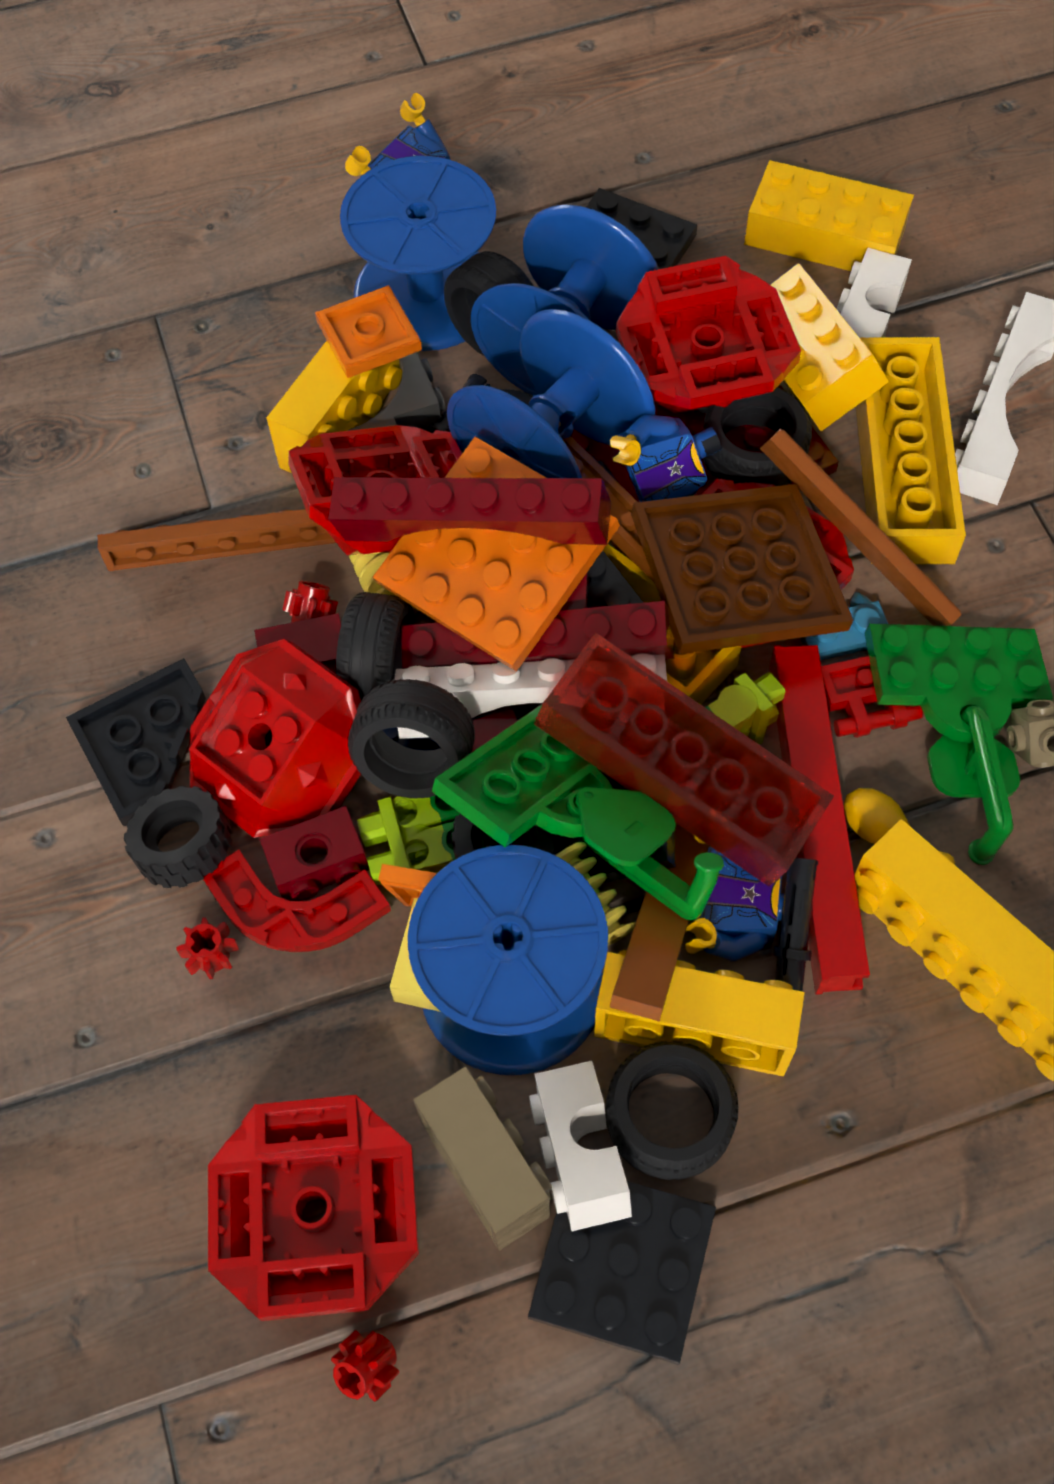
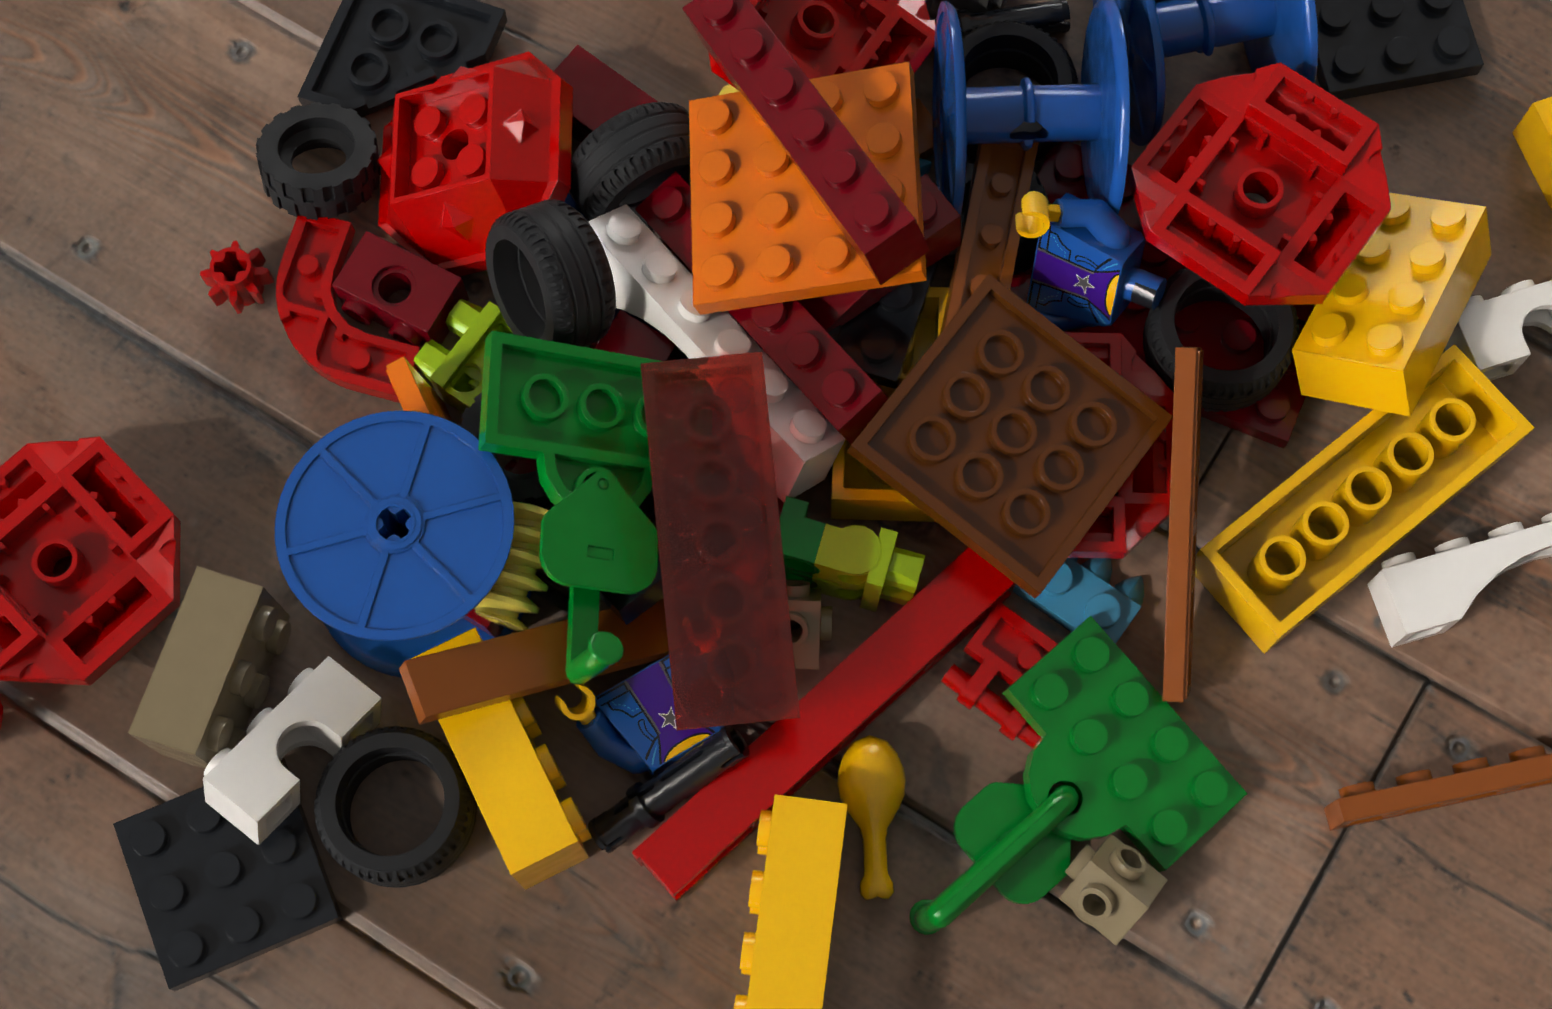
camera: 50 degrees right, 10 degrees up
(309, 601) = (657, 69): red gear -> none

